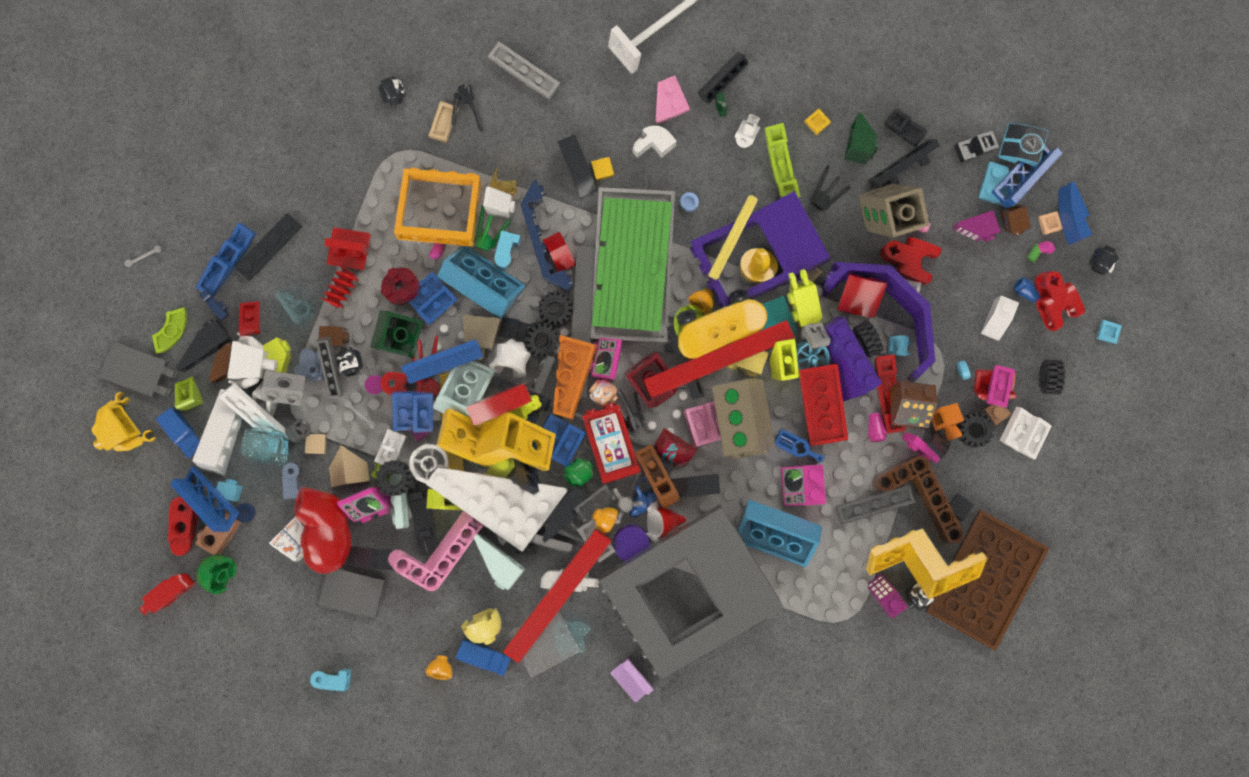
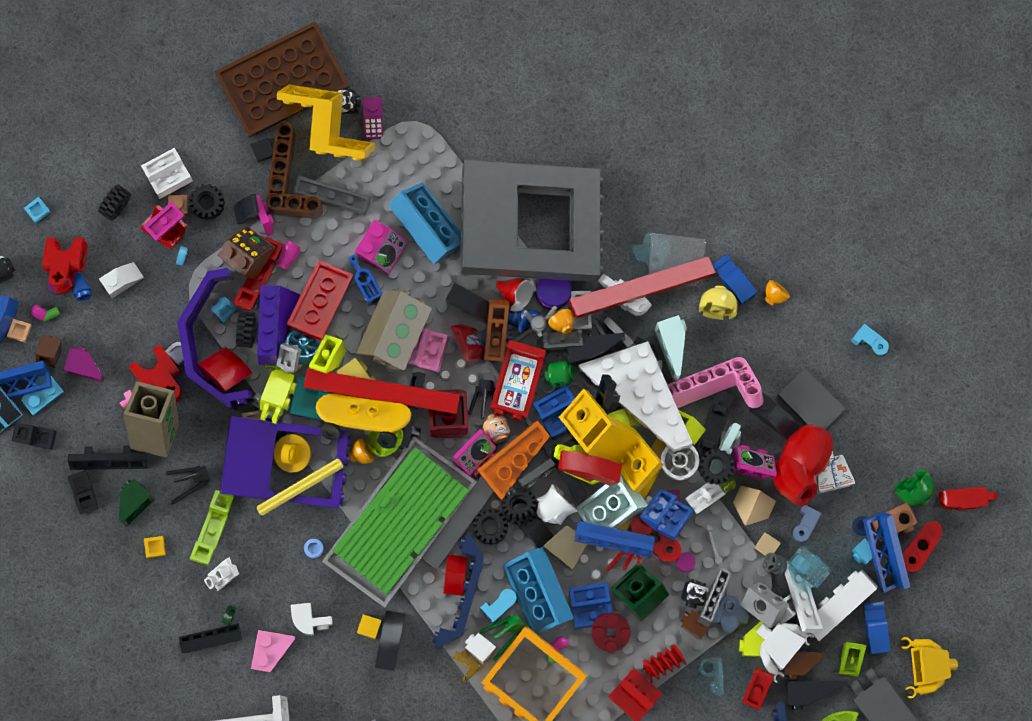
camera: 150 degrees left, 5 degrees down
(631, 680) = (624, 185): lavender panel -> none
(947, 418) = (224, 224): orange brick -> none

